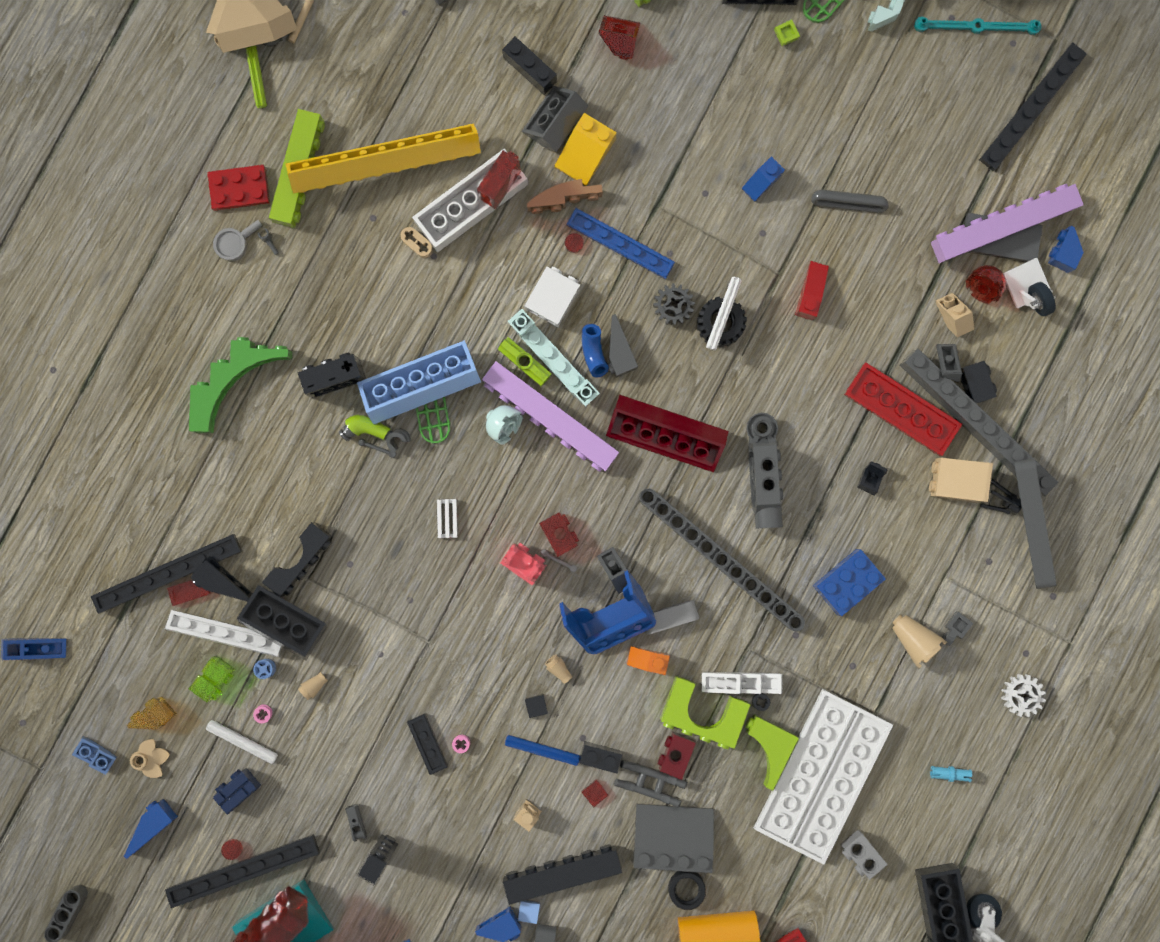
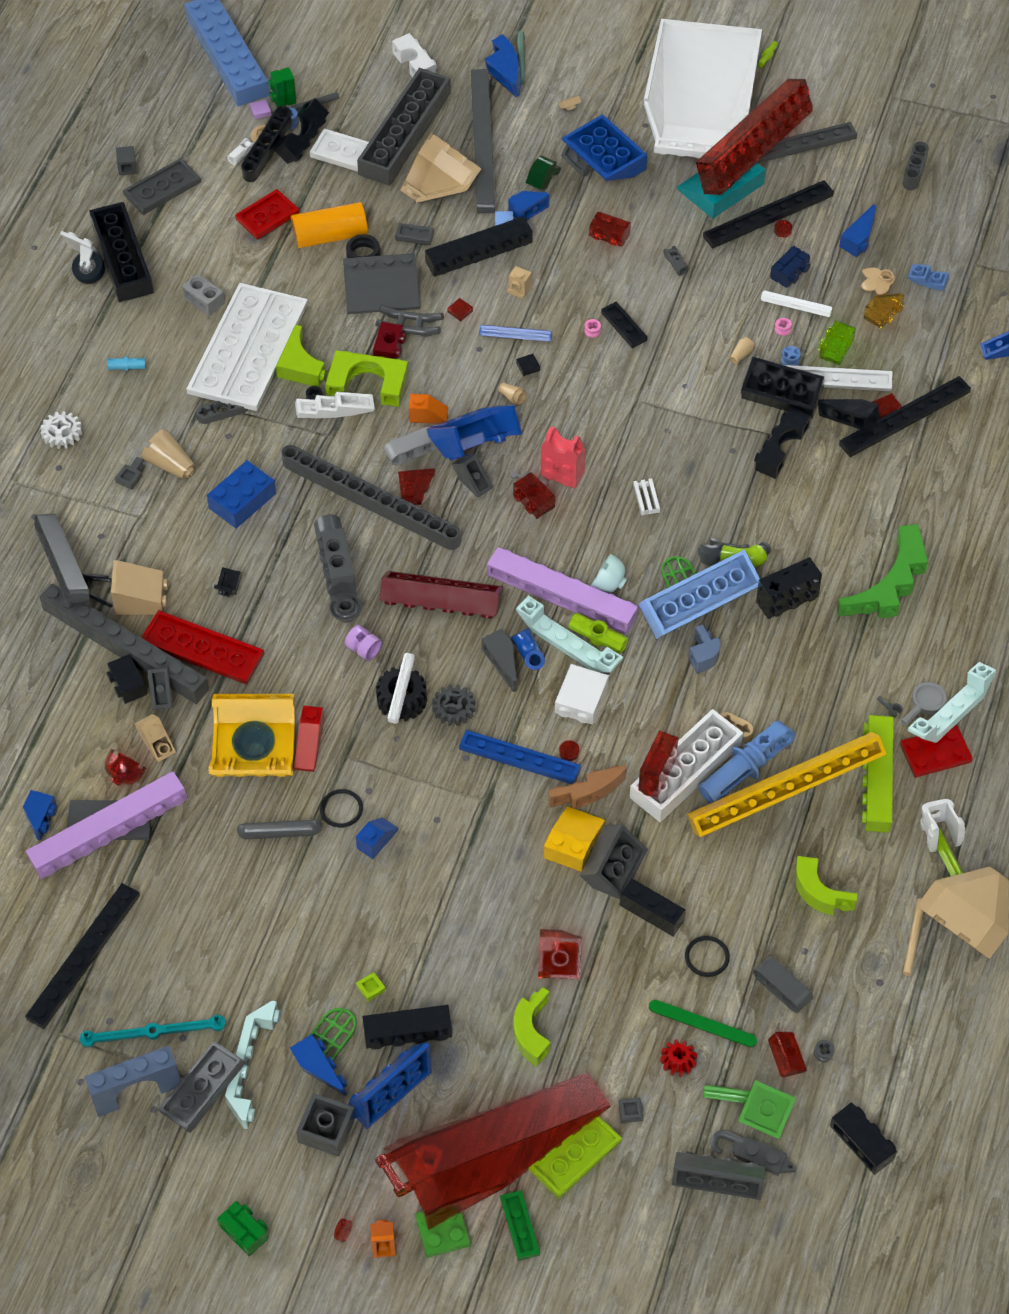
camera: 175 degrees right, 30 degrees down
(211, 220) = (961, 704): none -> light aqua slope
(243, 113) = (946, 814): none -> white piece
(378, 859) = (646, 223): black brick -> none
(387, 75) = (817, 894): none -> lime arch
(416, 192) = (746, 761): none -> medium blue piece
(418, 875) = (609, 229): none -> clear red brick
(424, 322) = (706, 653): none -> sand blue brick
(485, 35) = (705, 974): none -> black tyre
(600, 757) = (459, 332): black brick -> none
(628, 905) = (414, 234): none -> dark grey plate
(674, 570) = (415, 484): none -> clear red wing
(747, 378) = (363, 642): none -> lavender wheel
(788, 234) = (341, 825): none -> black tyre
(865, 294) = (253, 735): none -> yellow panel
(869, 691) = (210, 417): none -> dark grey beam
(1030, 288) = (80, 774): white plate -> none

